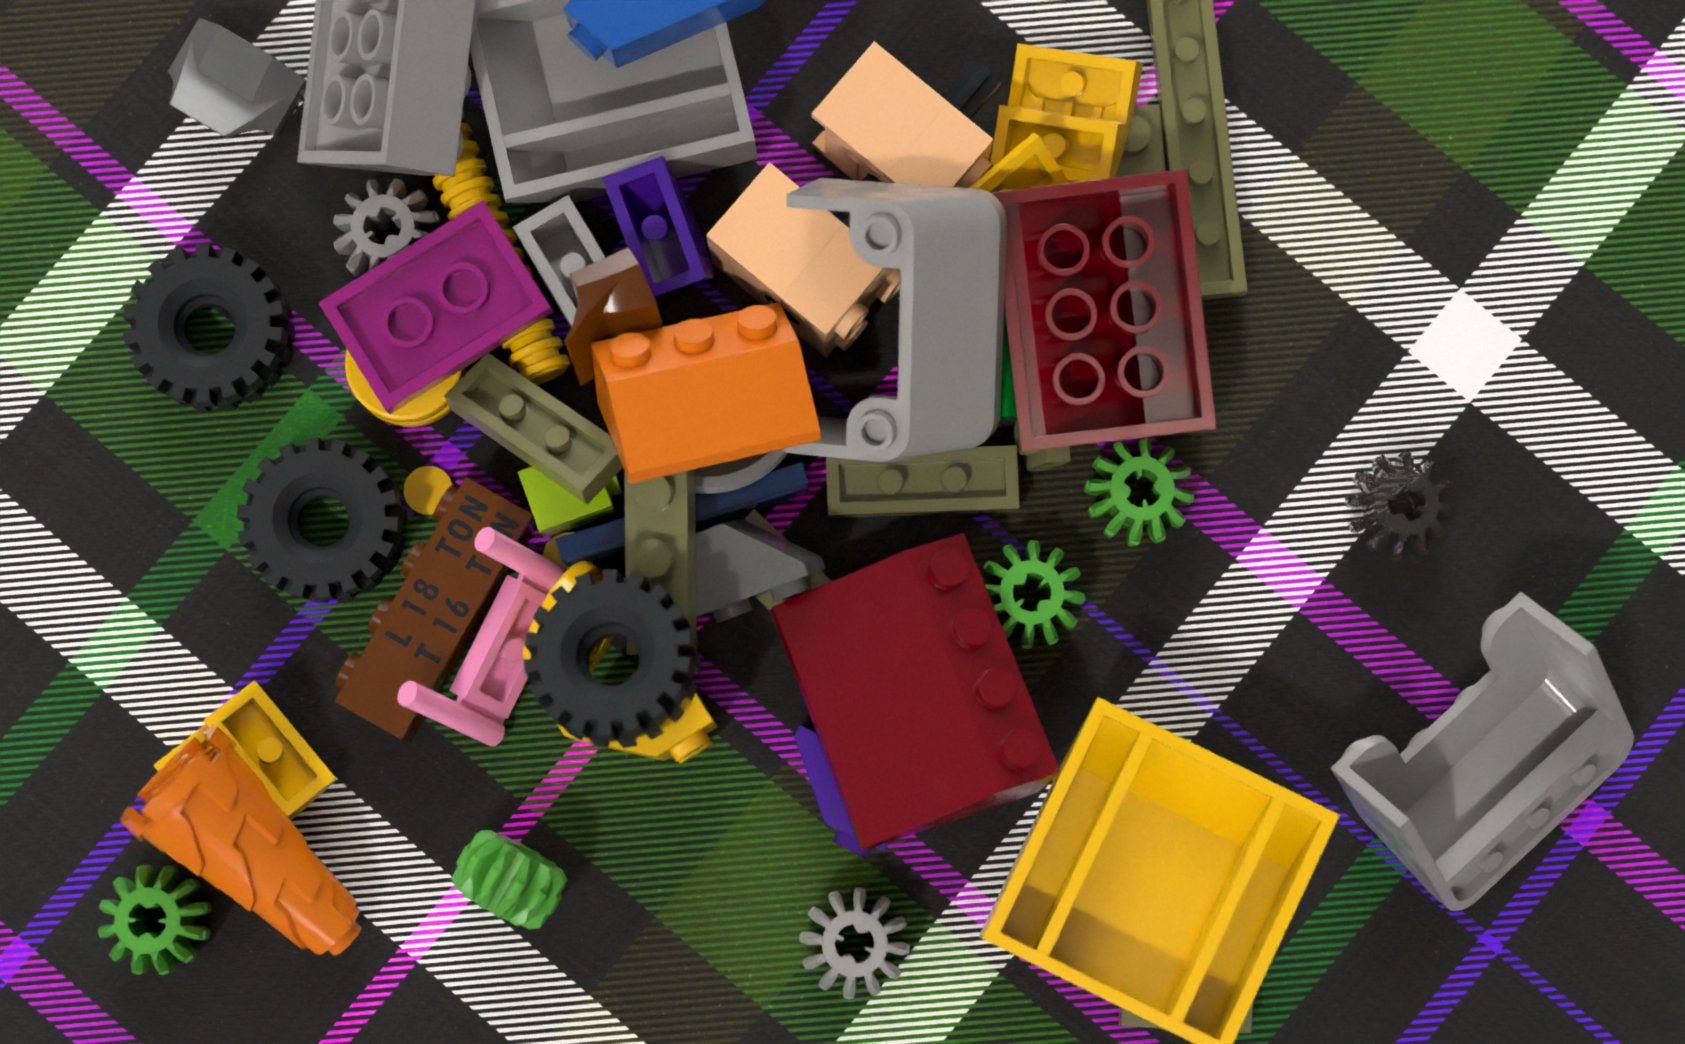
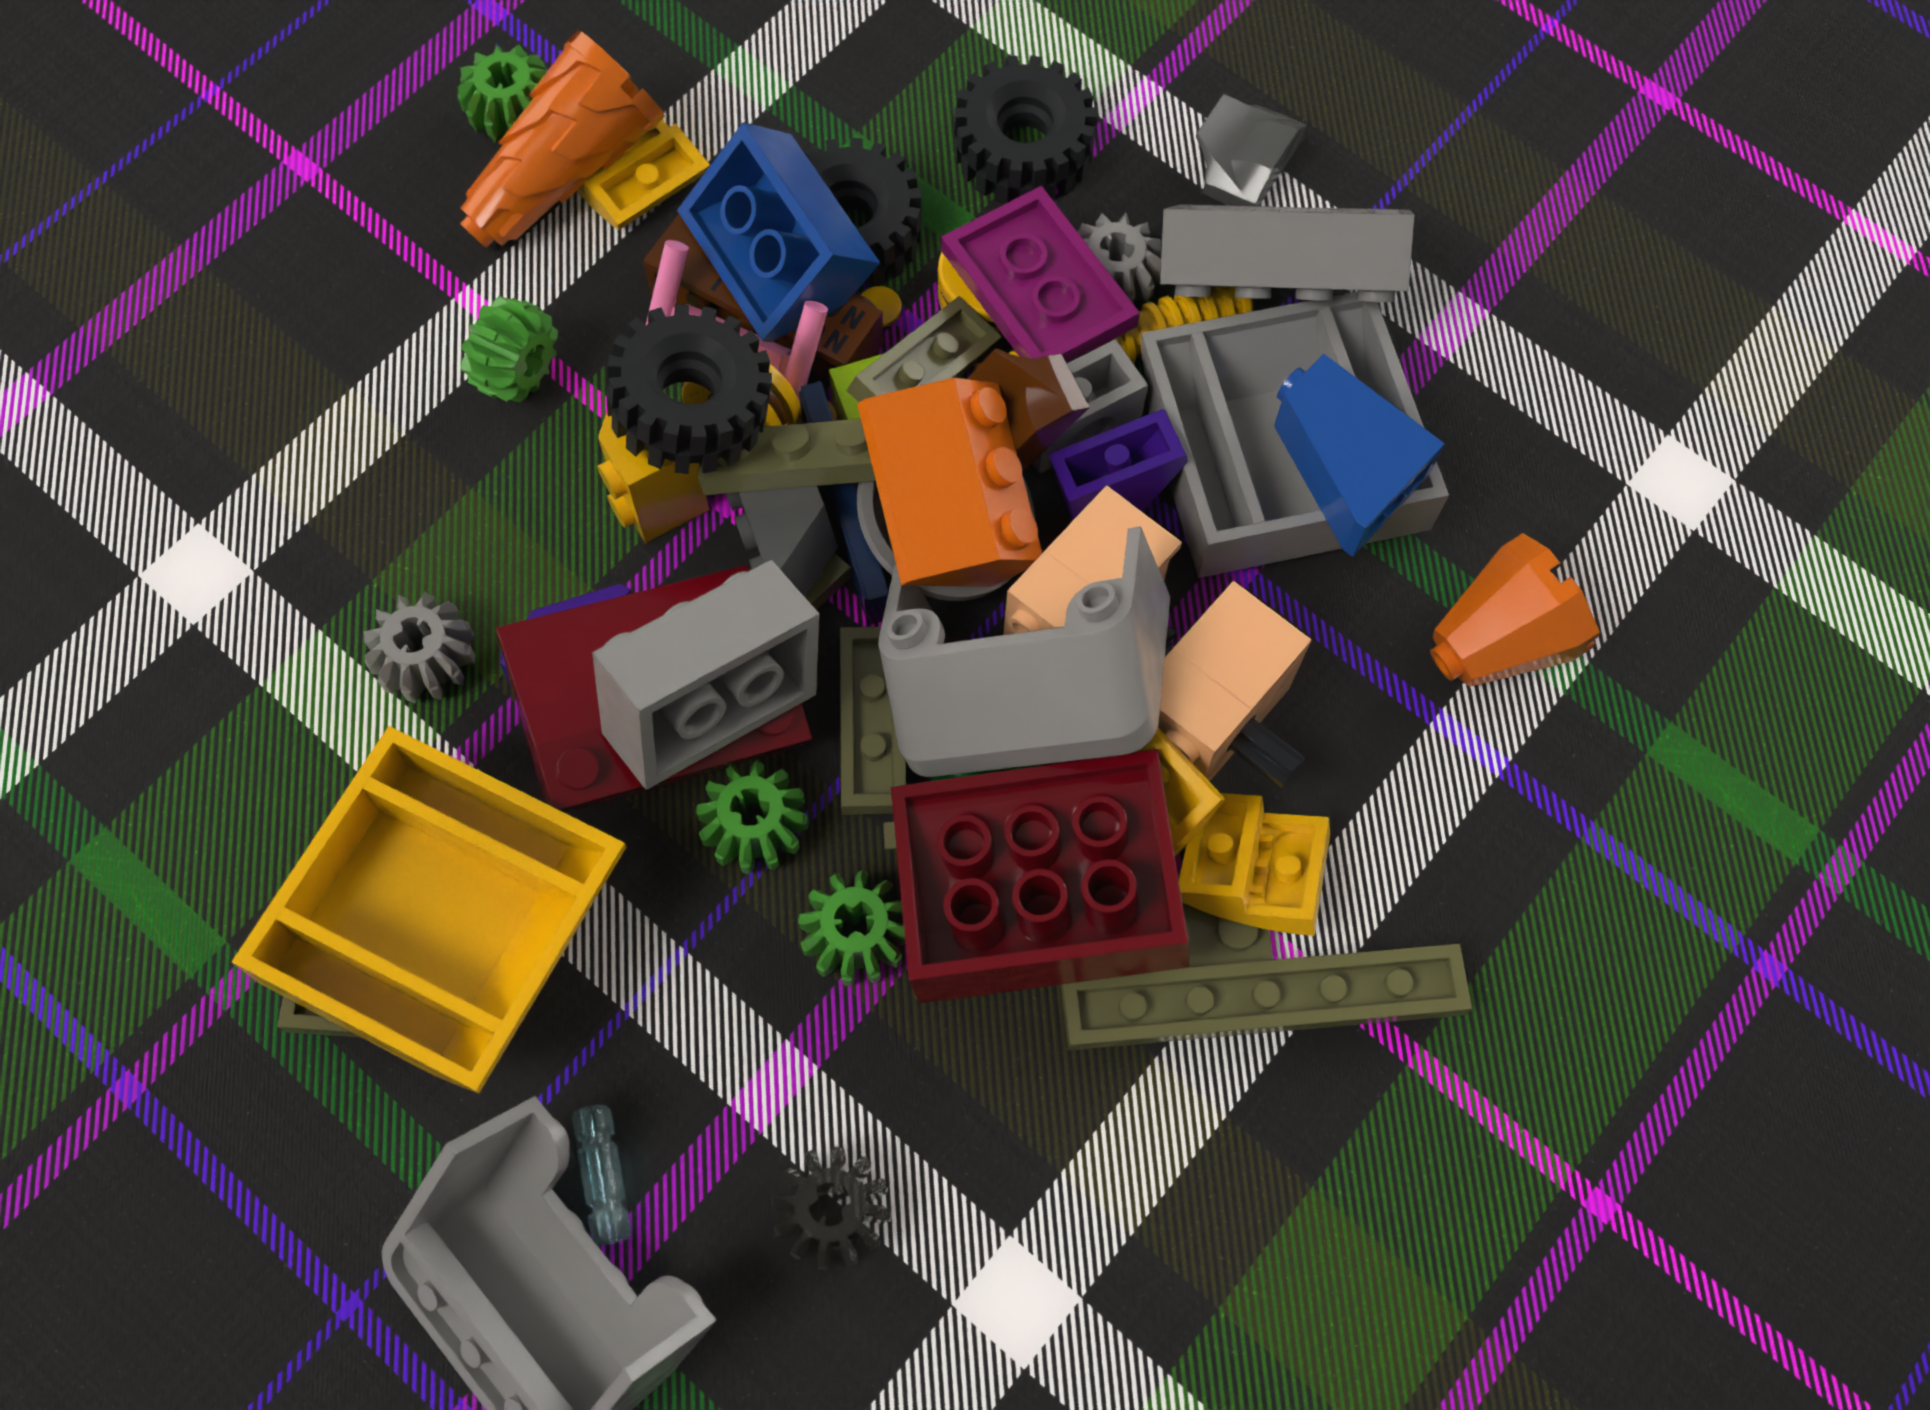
camera: 90 degrees right, 15 degrees down
(382, 589) = (775, 231): none -> blue slope
(940, 617) = (707, 672): none -> light grey brick
(1371, 719) = (601, 1175): none -> clear light blue axle

